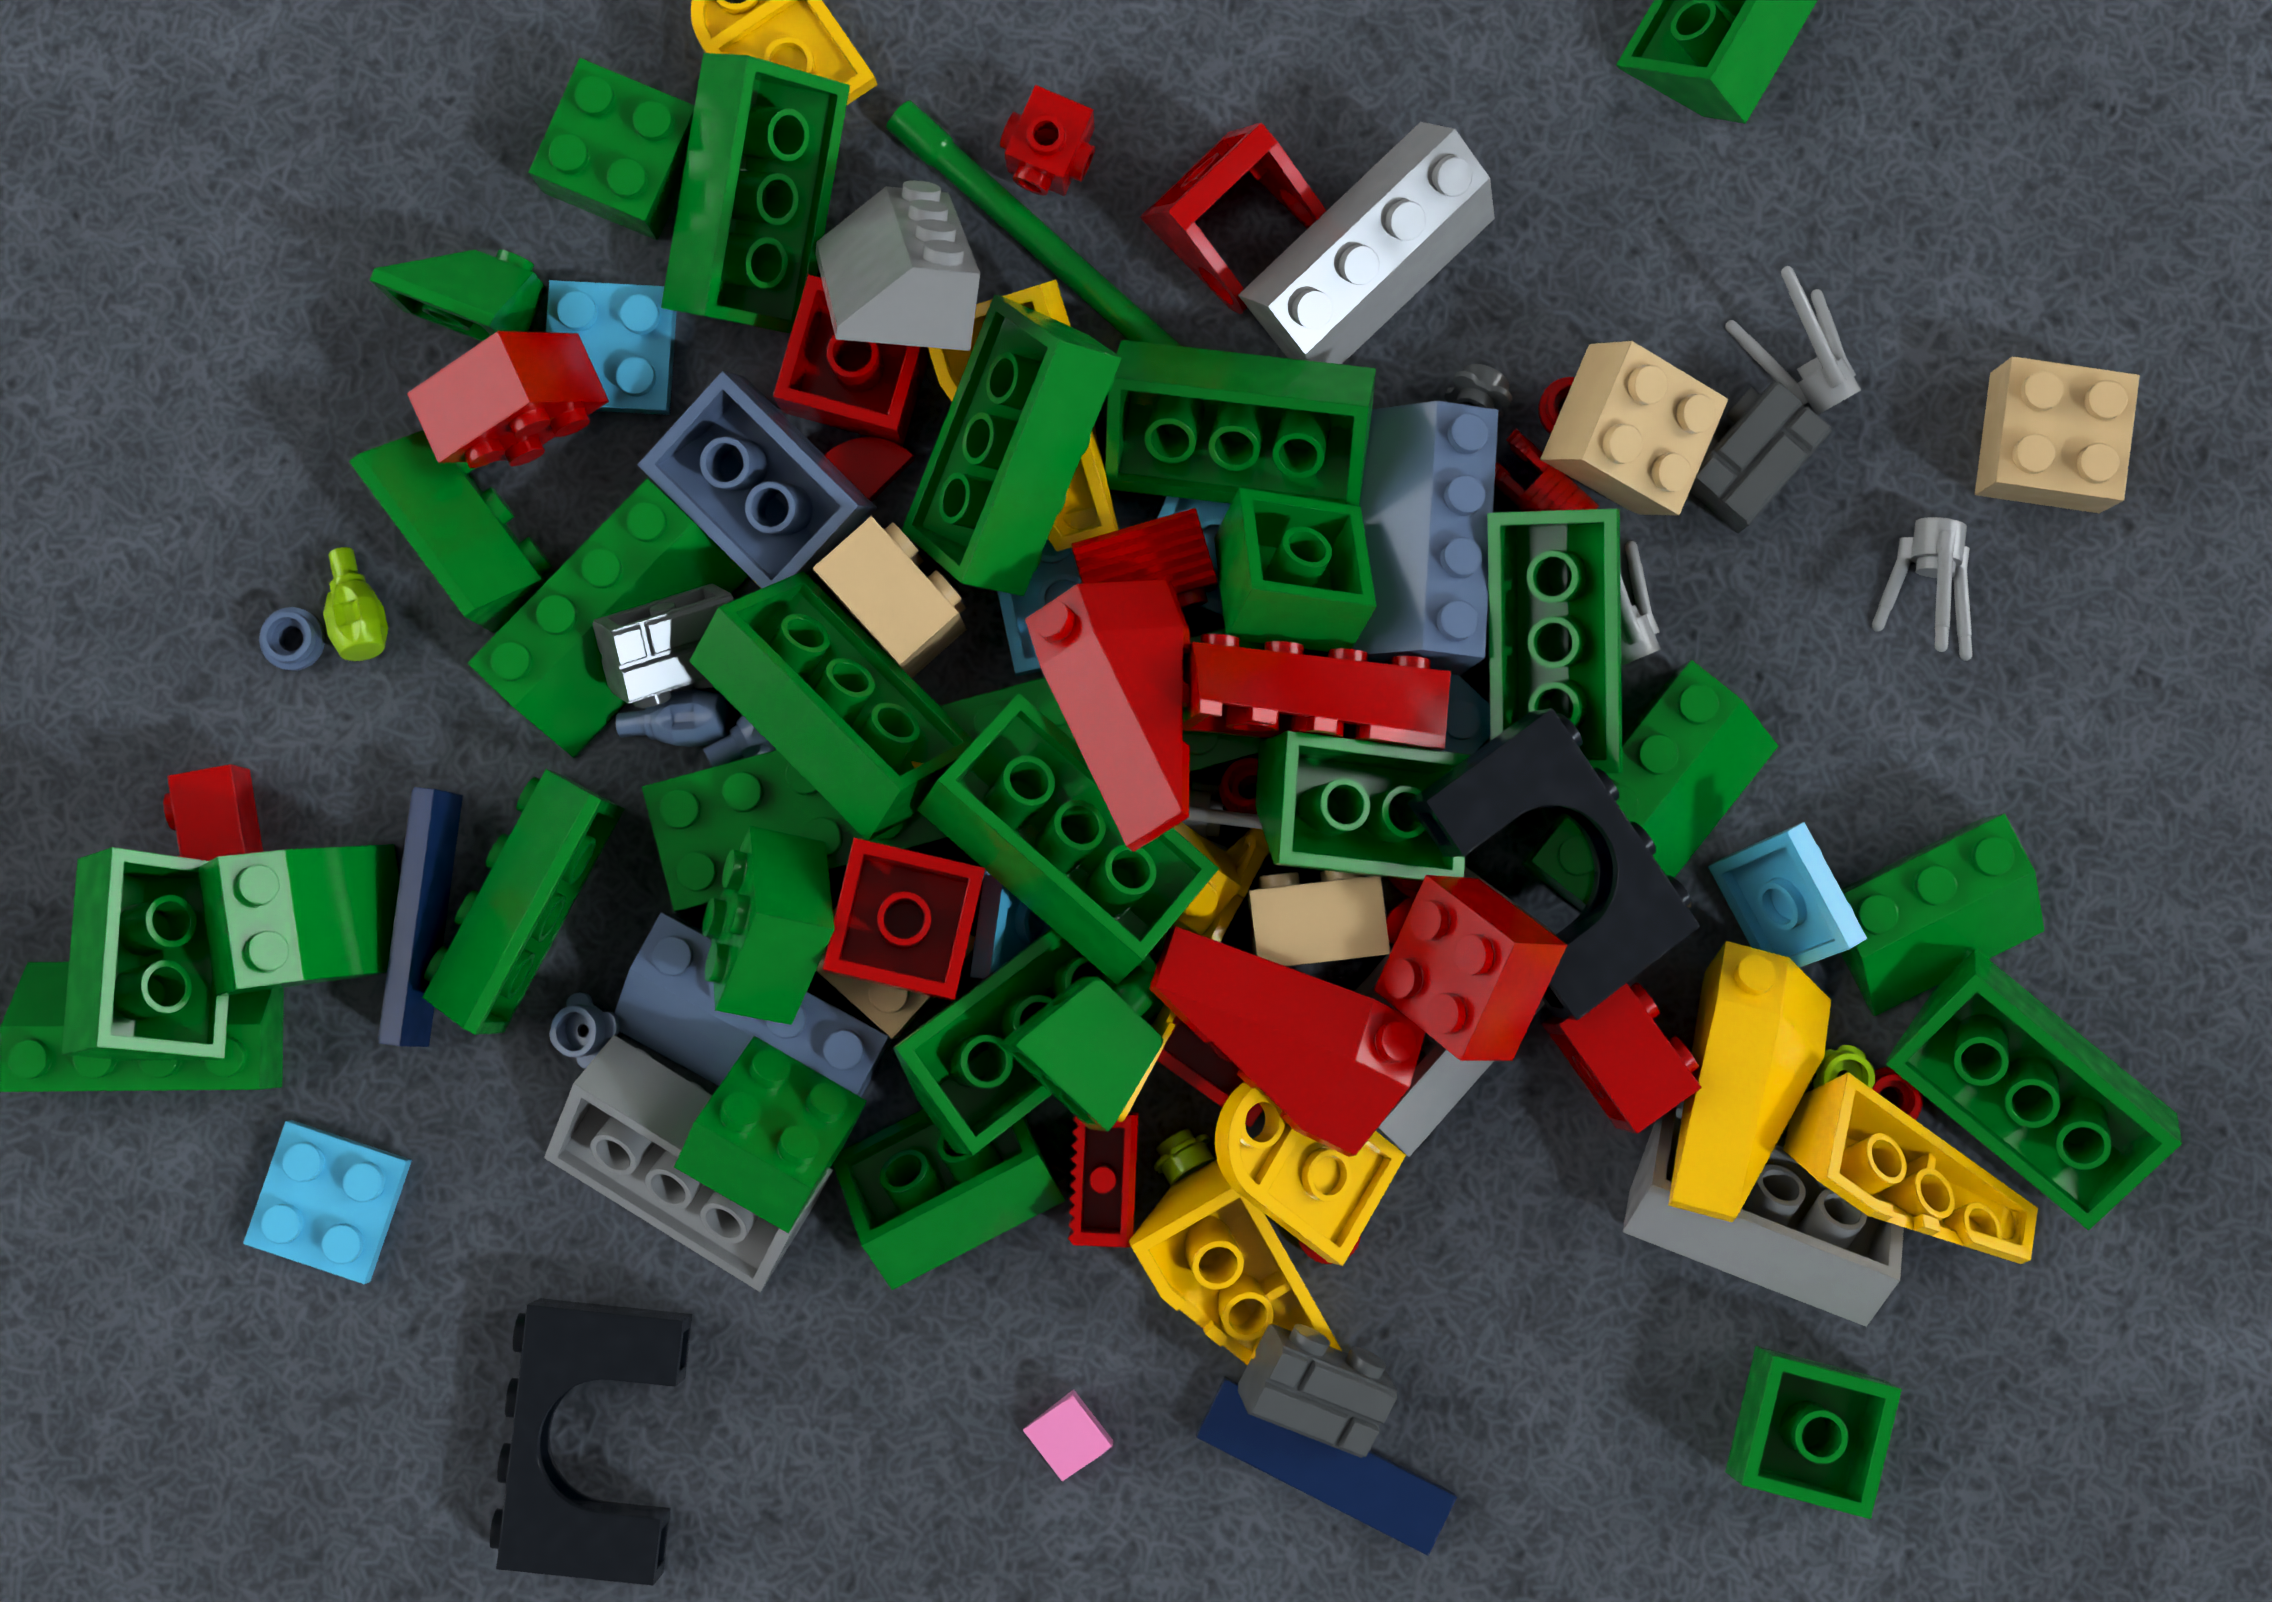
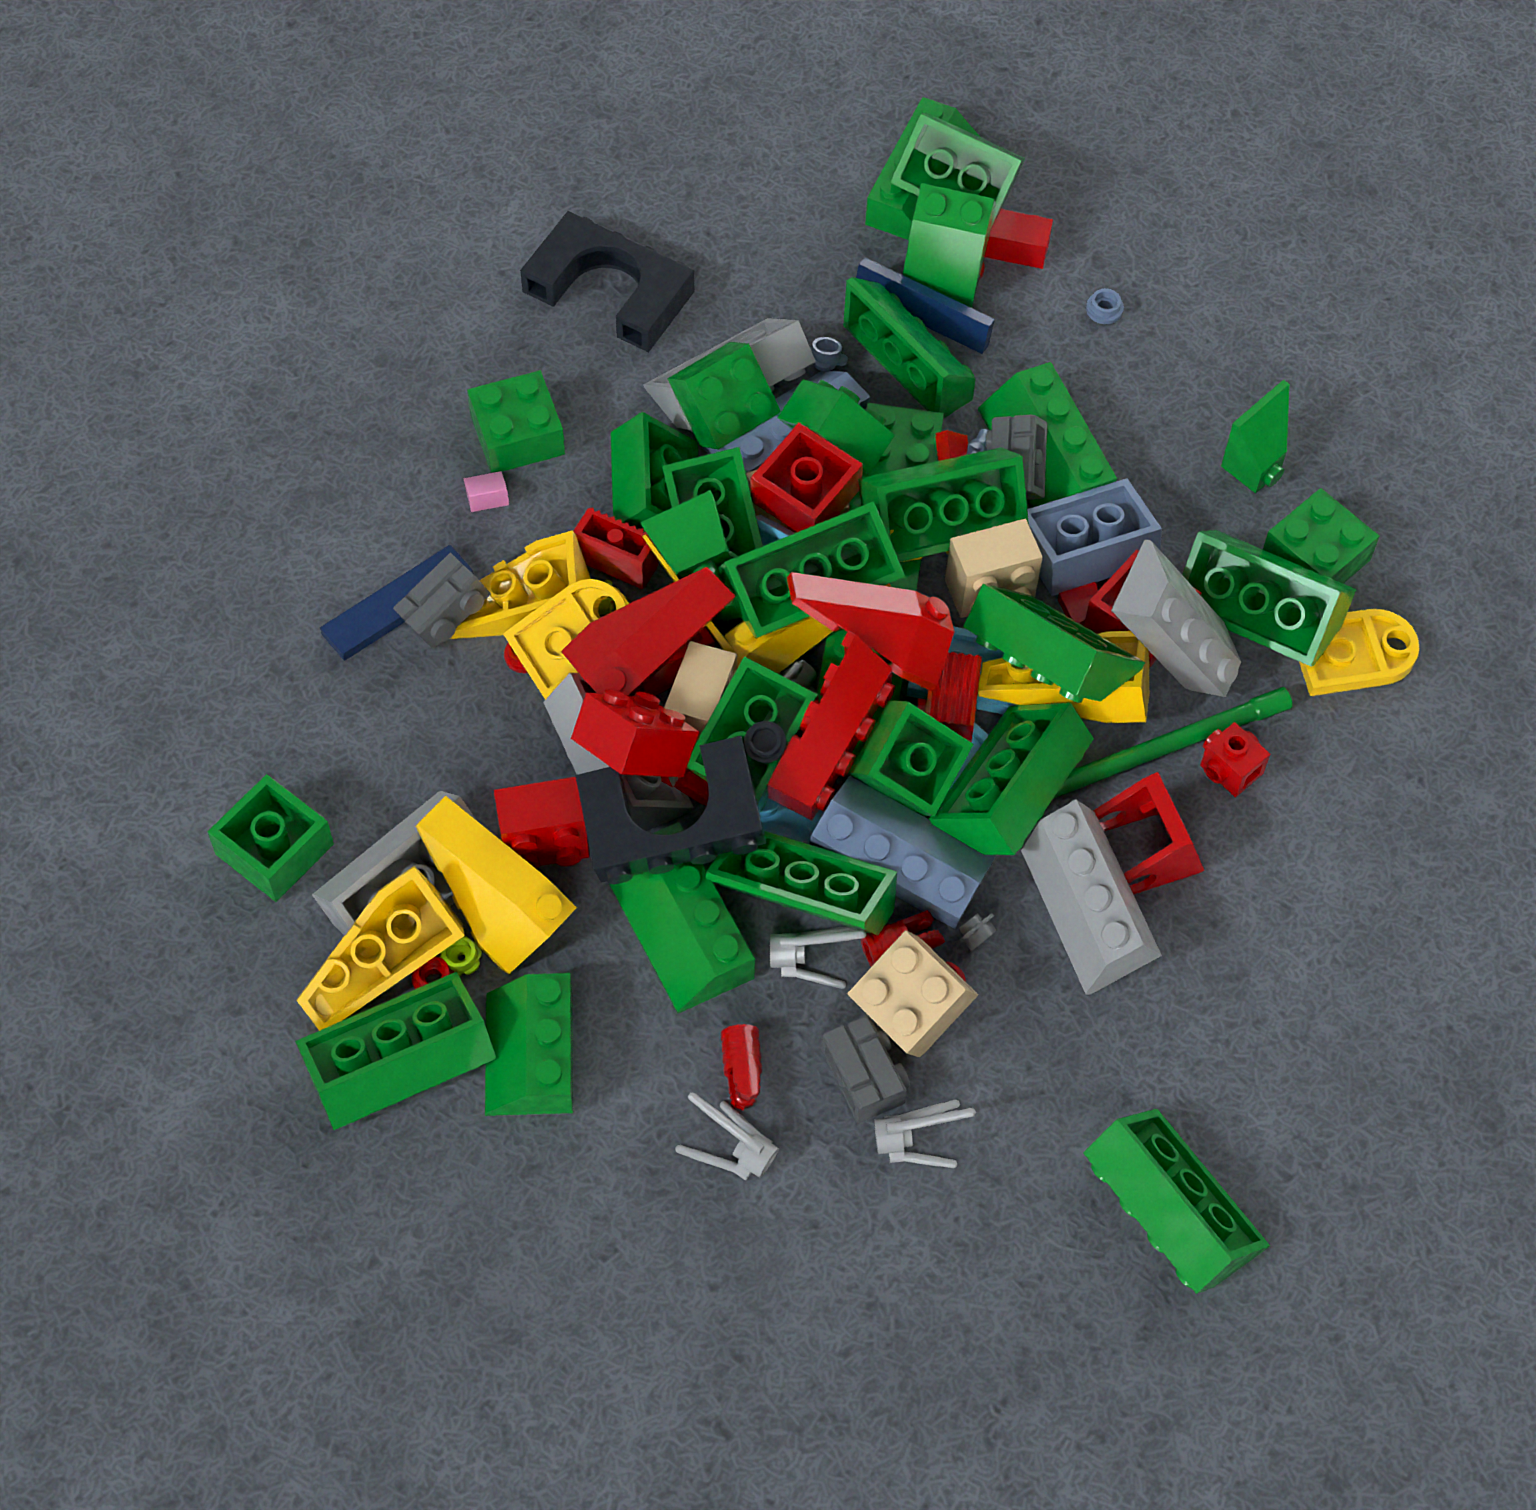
camera: 110 degrees right, 25 degrees down
(327, 1201) = (794, 220): medium azure plate -> none
(353, 611) = (1106, 336): lime piece -> none
(455, 529) = (1132, 384): green slope -> none
(508, 398) = (1190, 429): red brick -> none
(624, 337) = (1204, 502): medium azure plate -> none
(705, 747) = (951, 444): none -> red tile
(937, 1448) = (516, 422): none -> green brick
(1394, 774) = (765, 742): none -> black plate
(1788, 898) = (563, 957): medium azure plate -> none
(1822, 620) = (742, 1063): none -> red hinge
(2057, 435) = (792, 1252): tan brick -> none

